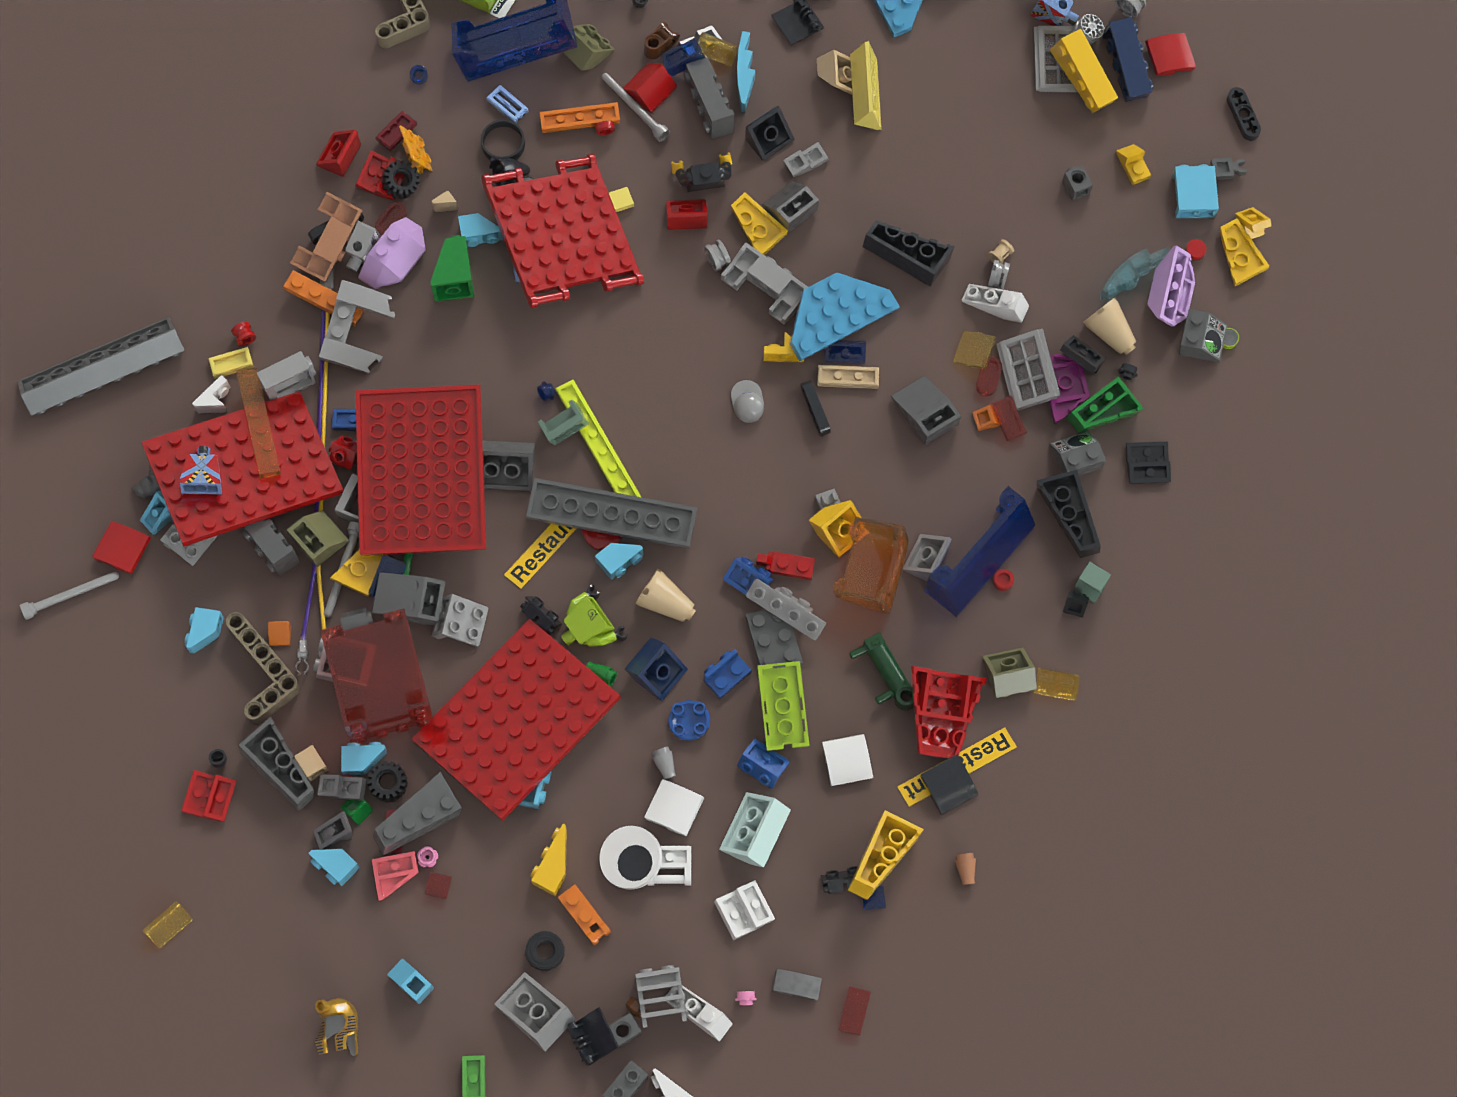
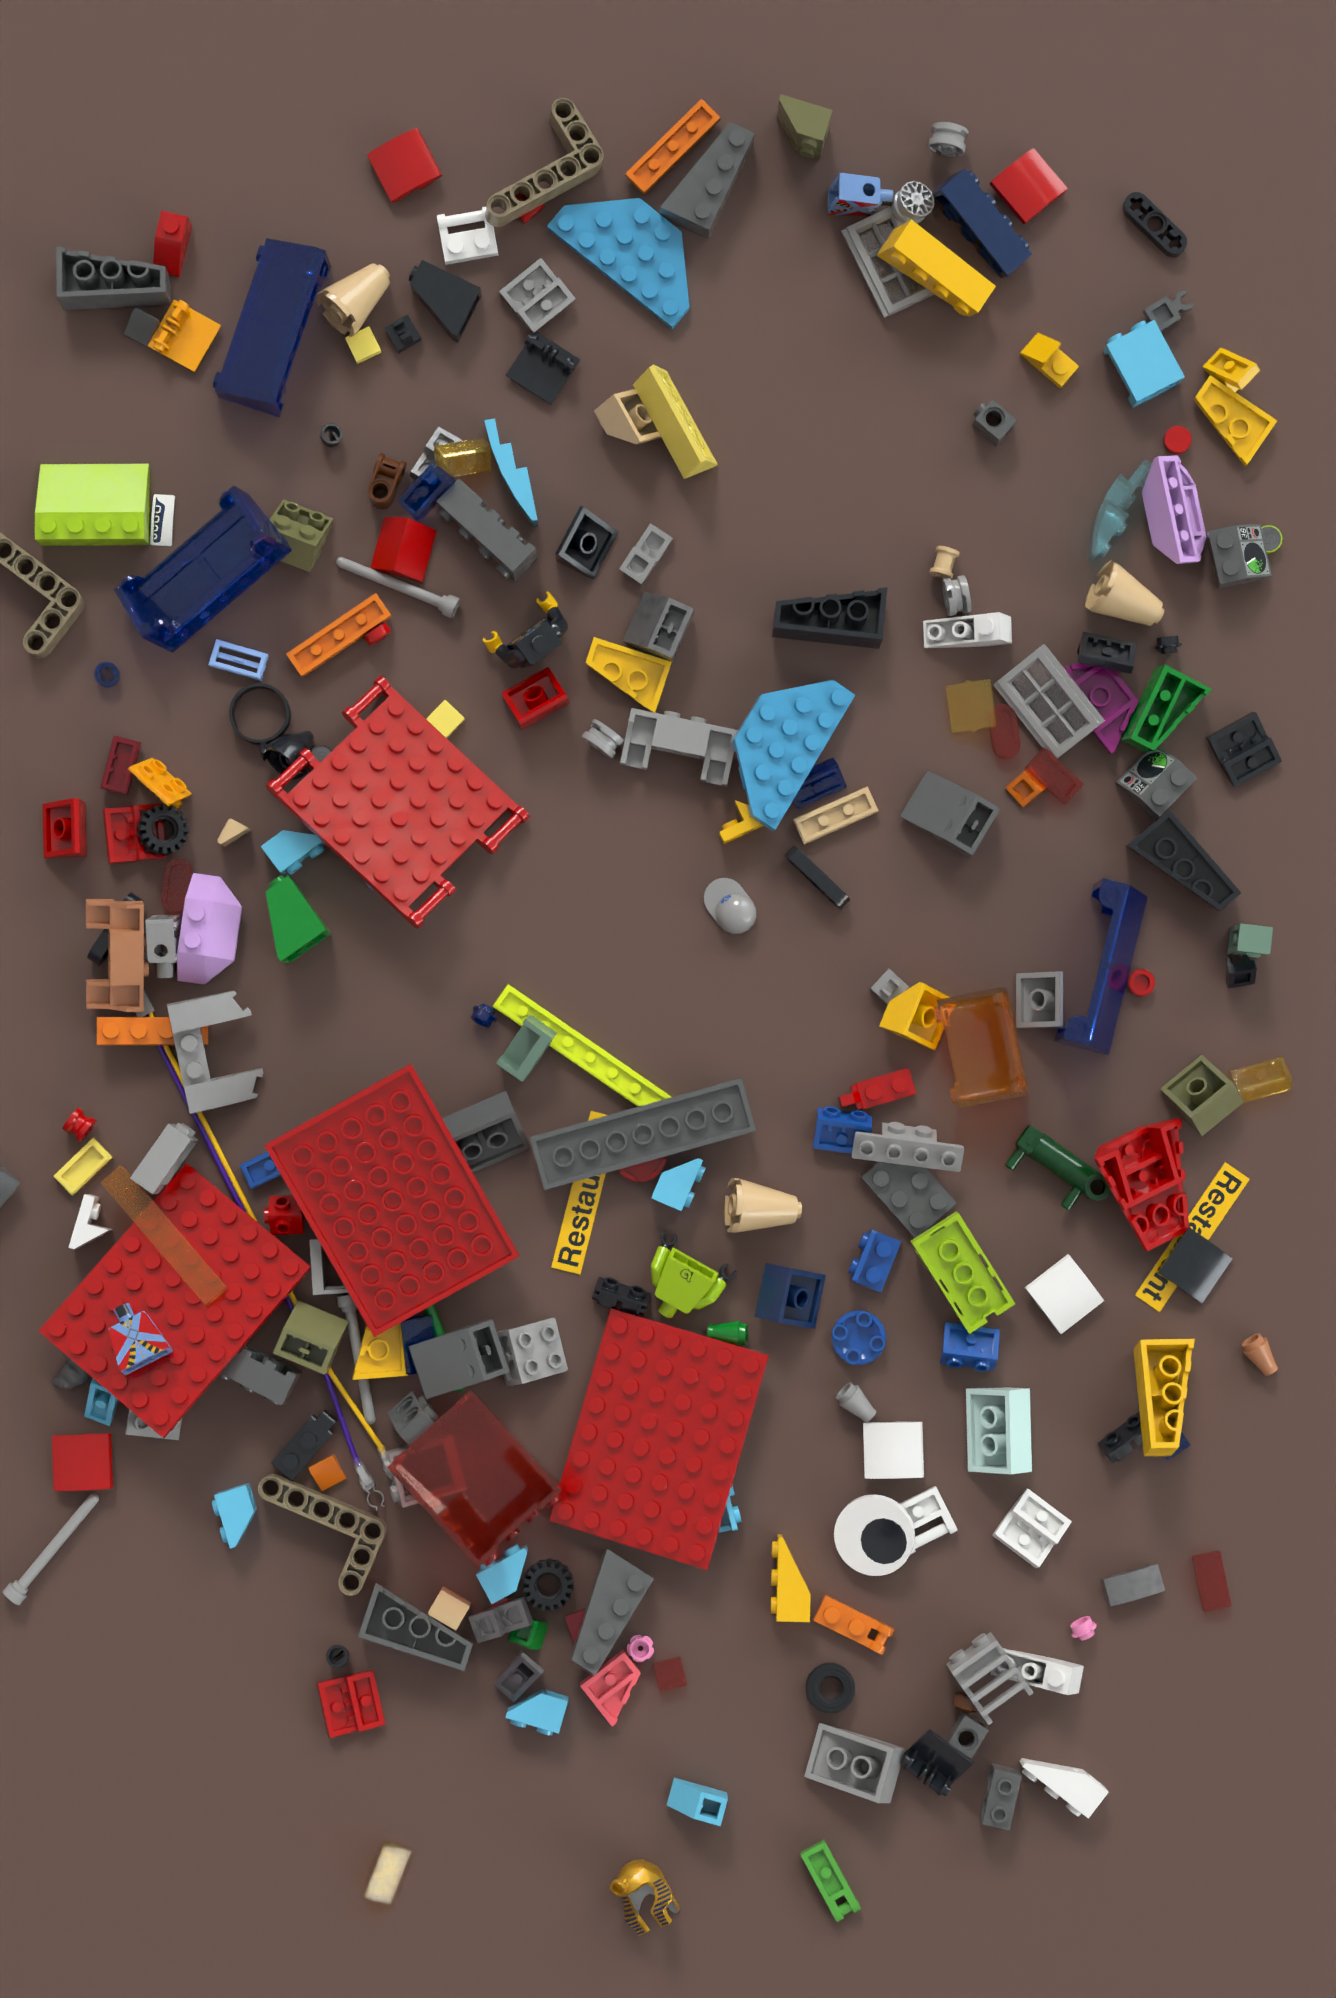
camera: 30 degrees left, 15 degrees up
(275, 609) = (305, 1444): none -> black hinge

